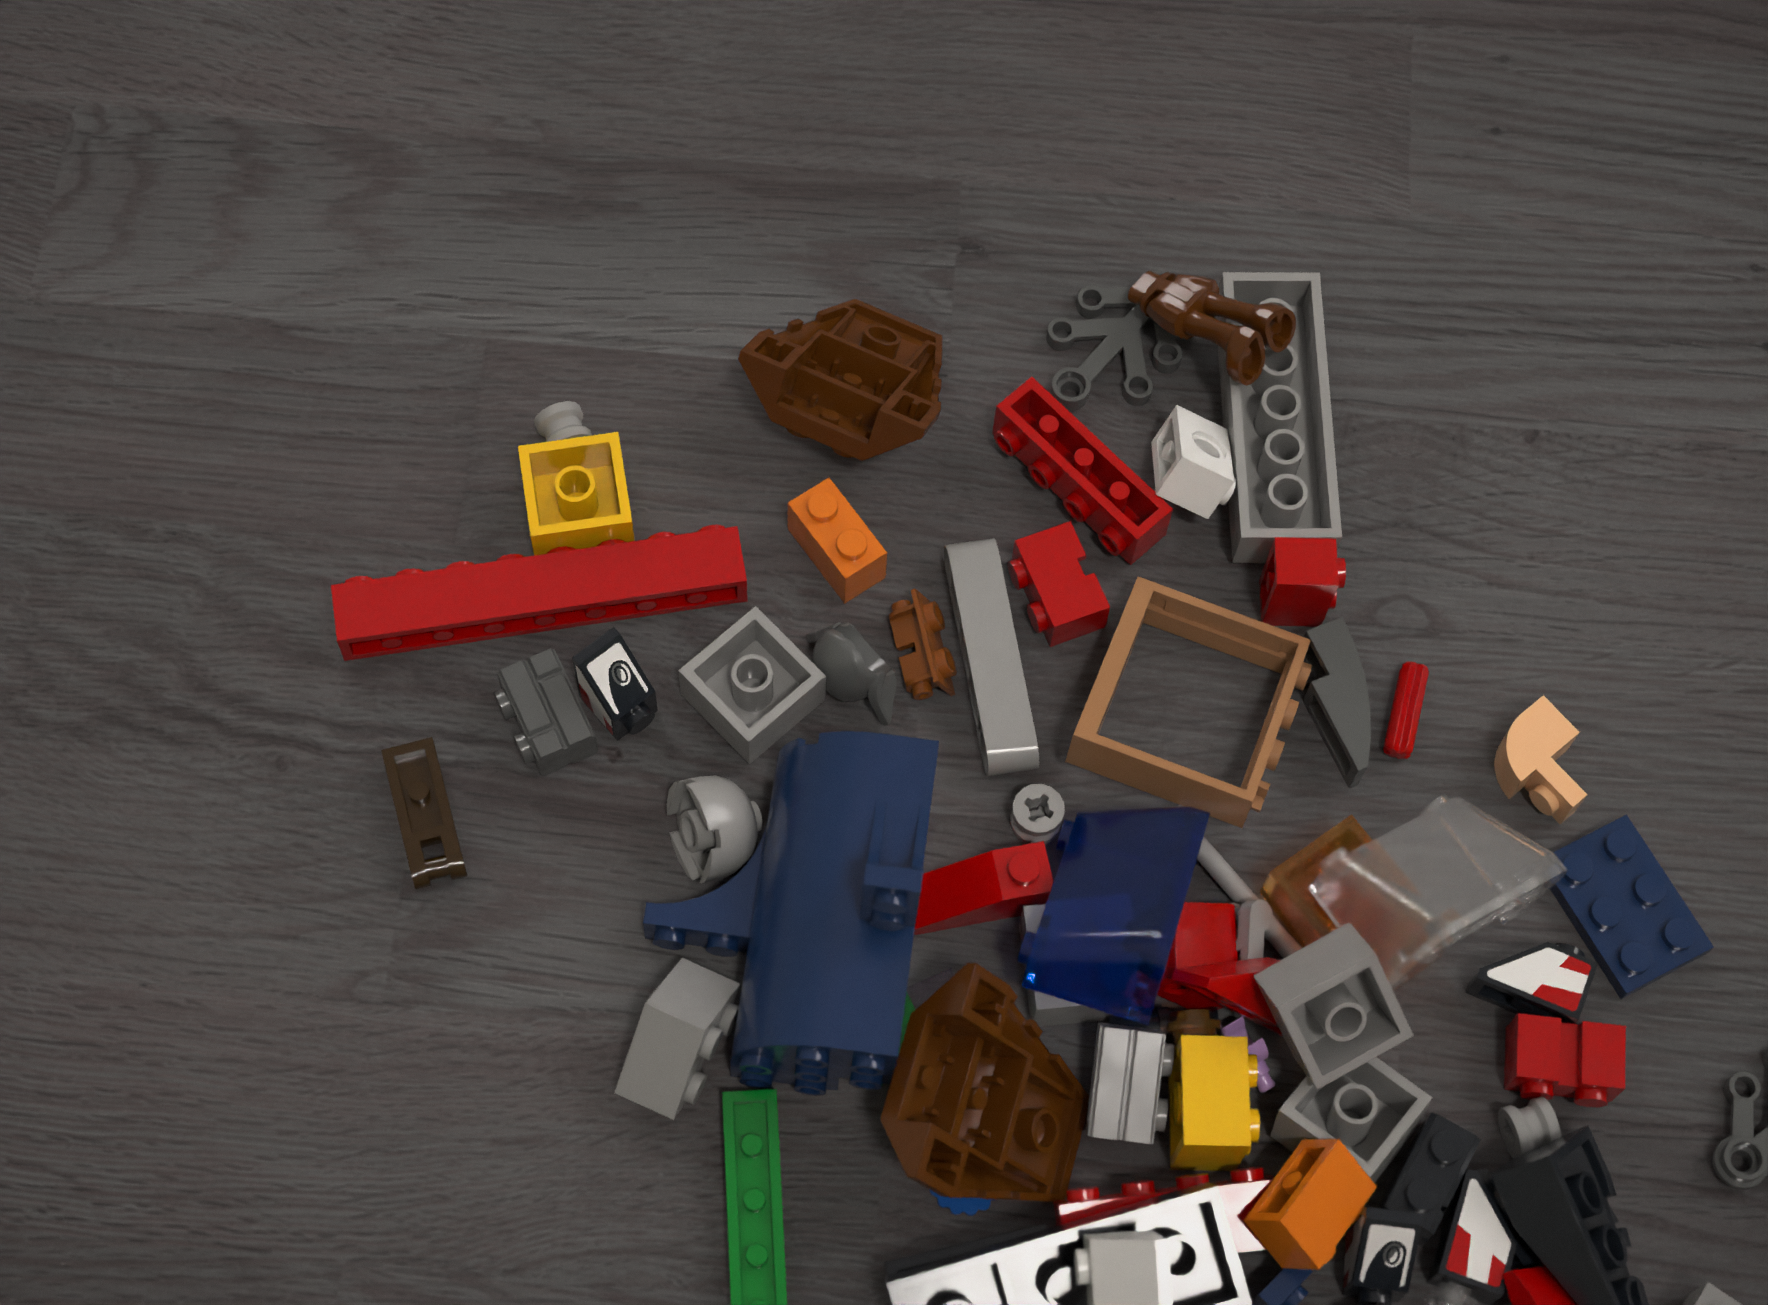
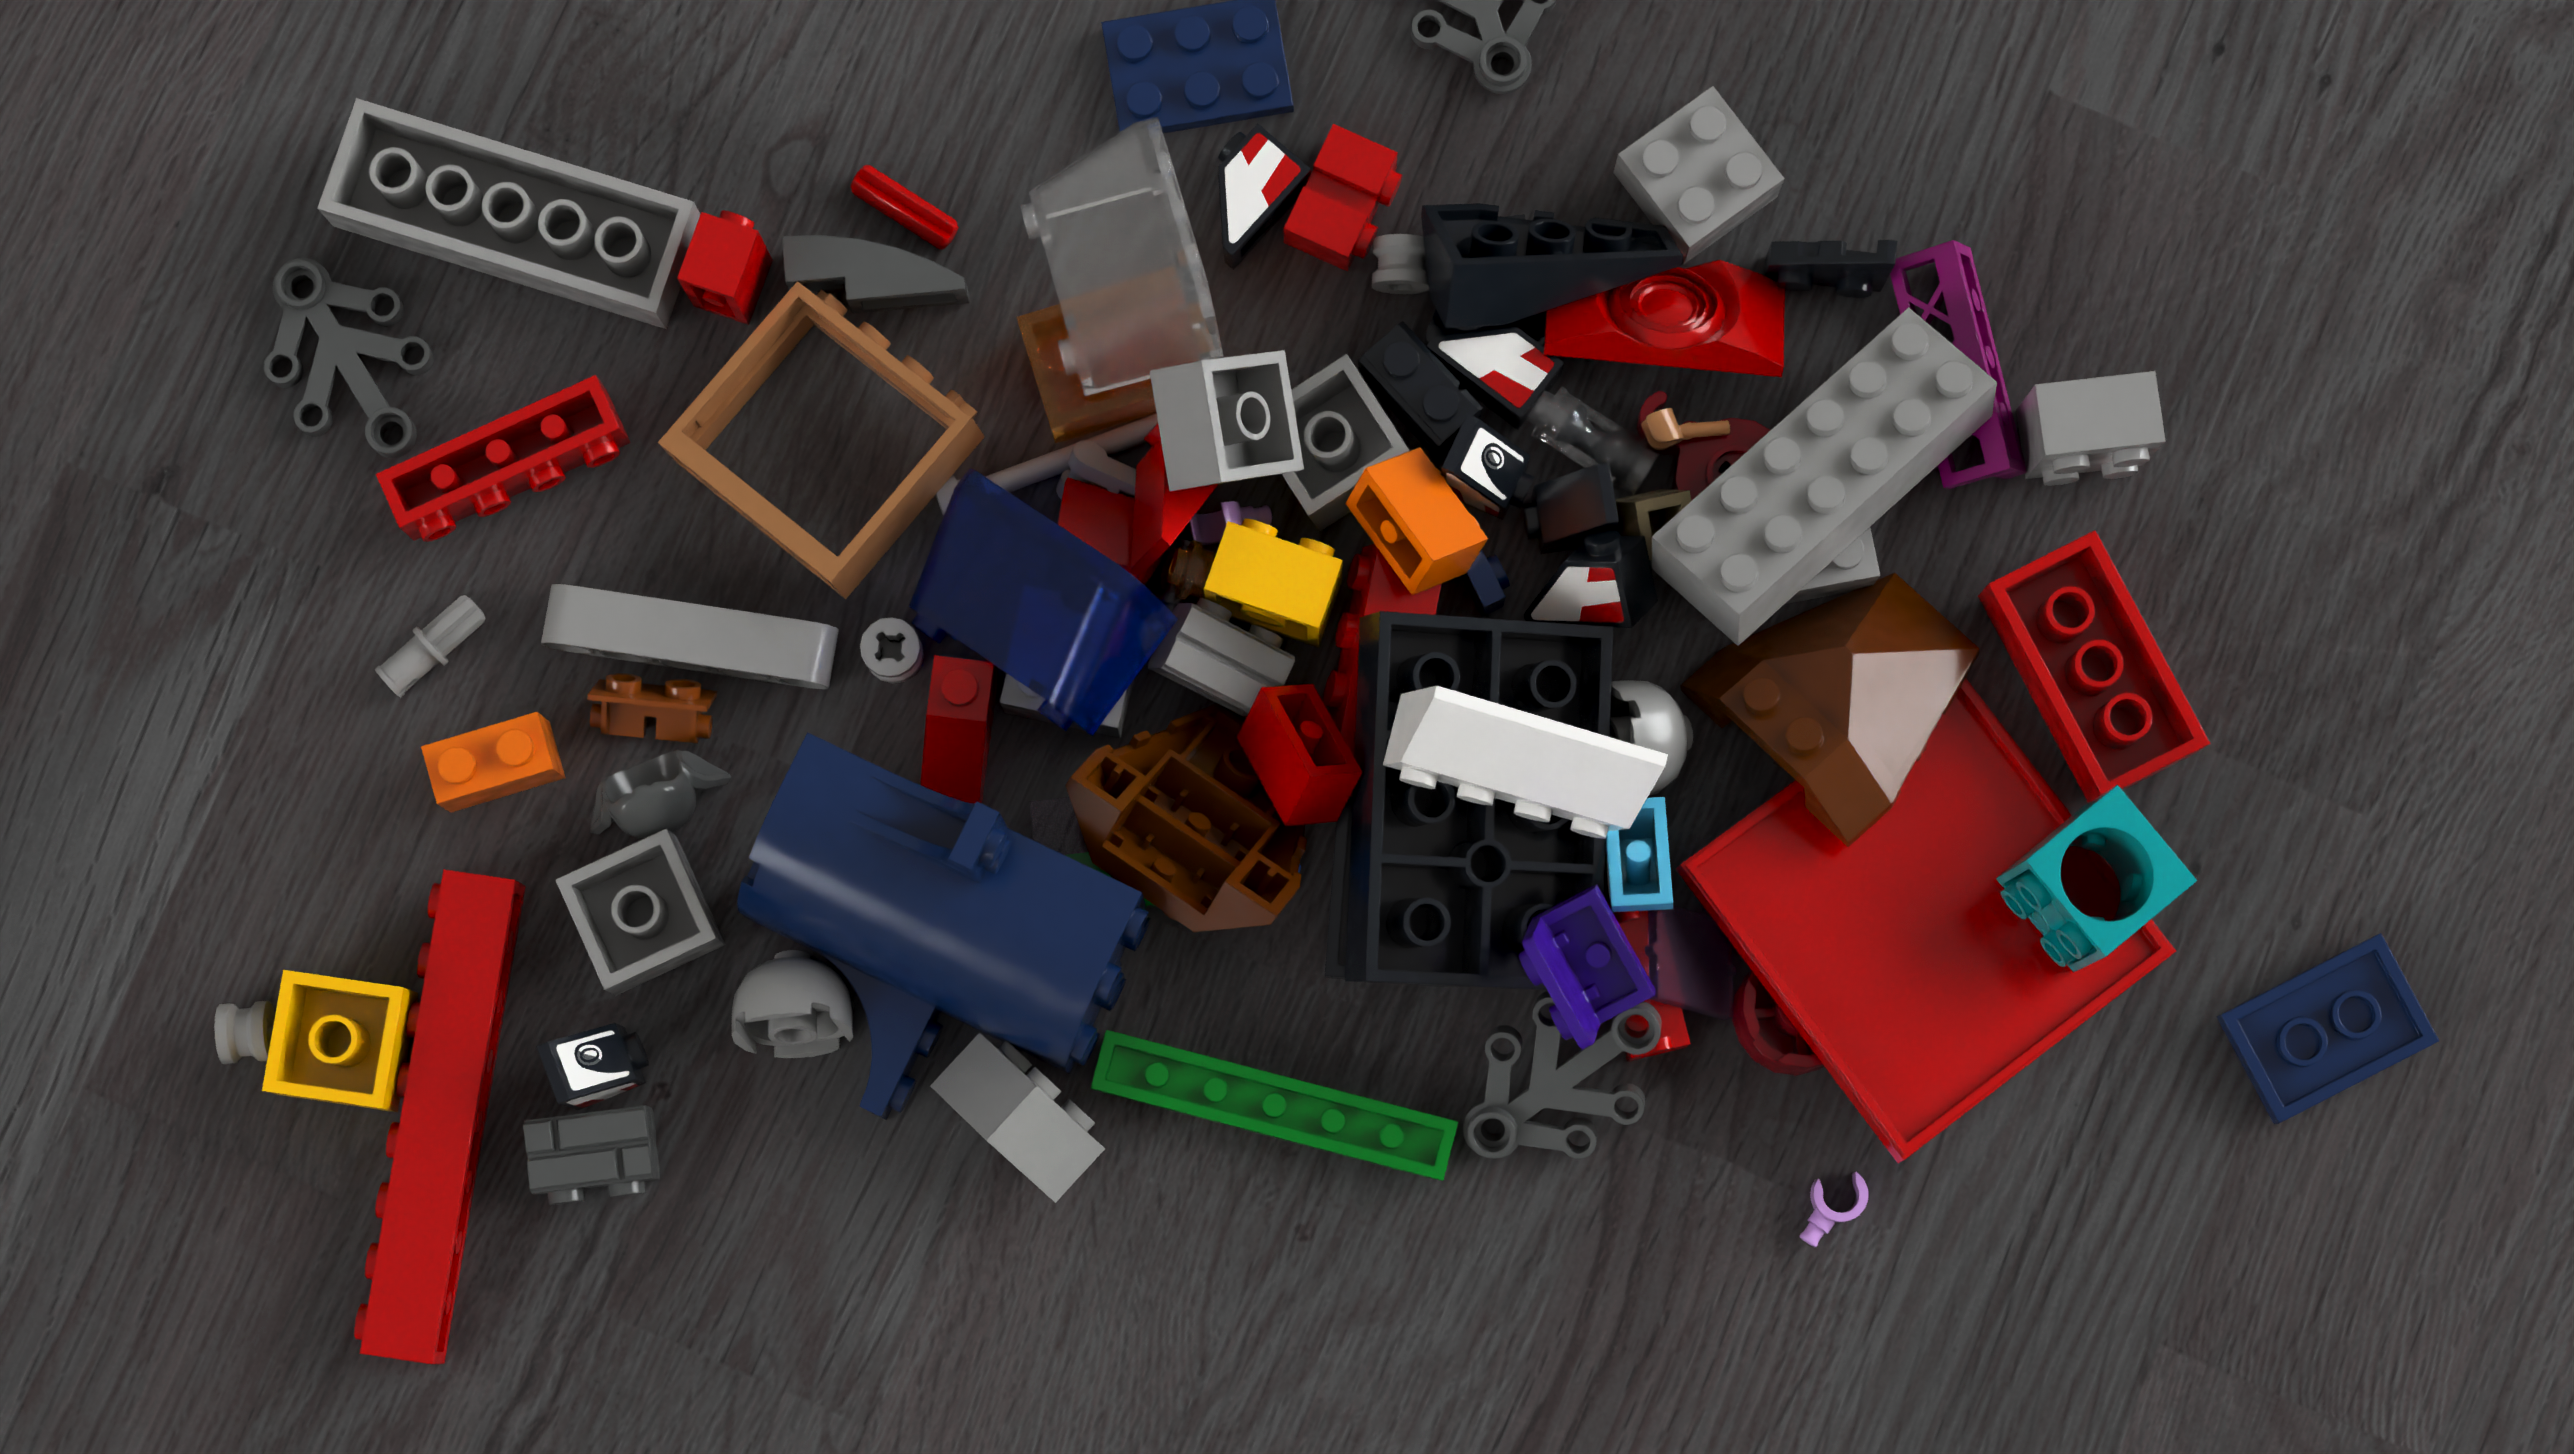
camera: 65 degrees left, 15 degrees up
(423, 811) = (661, 1321): dark brown plate -> none
(849, 378) = (302, 677): reddish brown wedge -> none
(915, 470) = (431, 645): none -> light grey axle
(1060, 595) = (630, 535): red brick -> none
(1067, 1169) = (1299, 754): none -> red brick
(1186, 309) = (342, 265): reddish brown piece -> none
(1193, 462) = (541, 331): white brick -> none
(1529, 756) = (1001, 100): light nougat brick -> none

